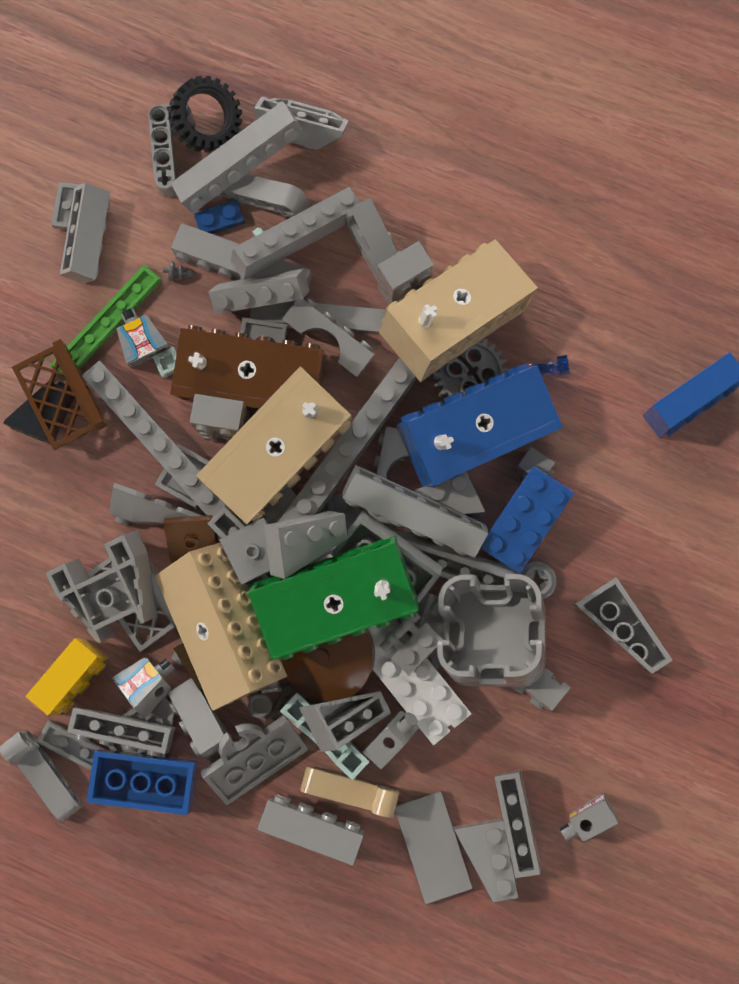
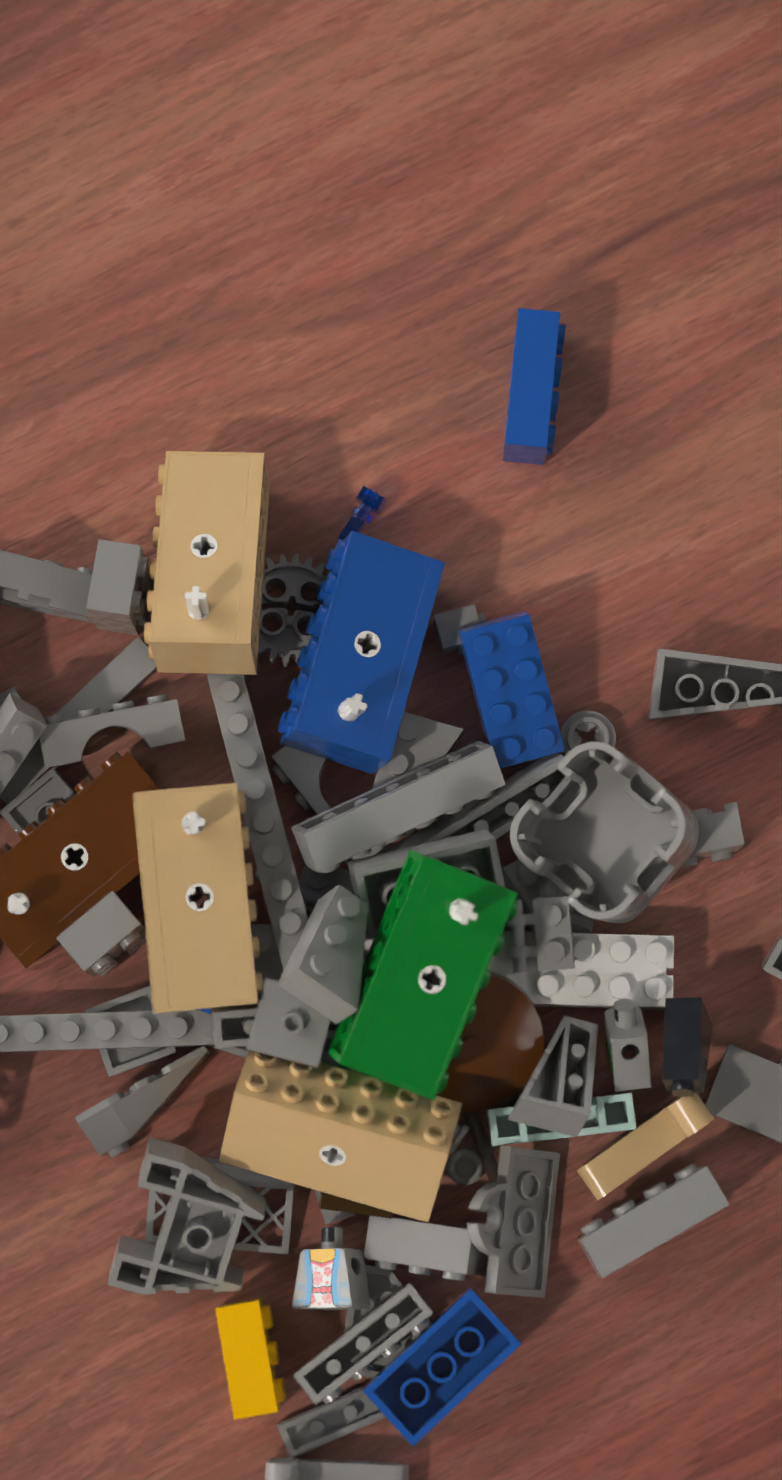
camera: 50 degrees left, 0 degrees up
(188, 534) = (206, 1086): reddish brown plate -> none
(417, 770) = (686, 1046): none -> black slope

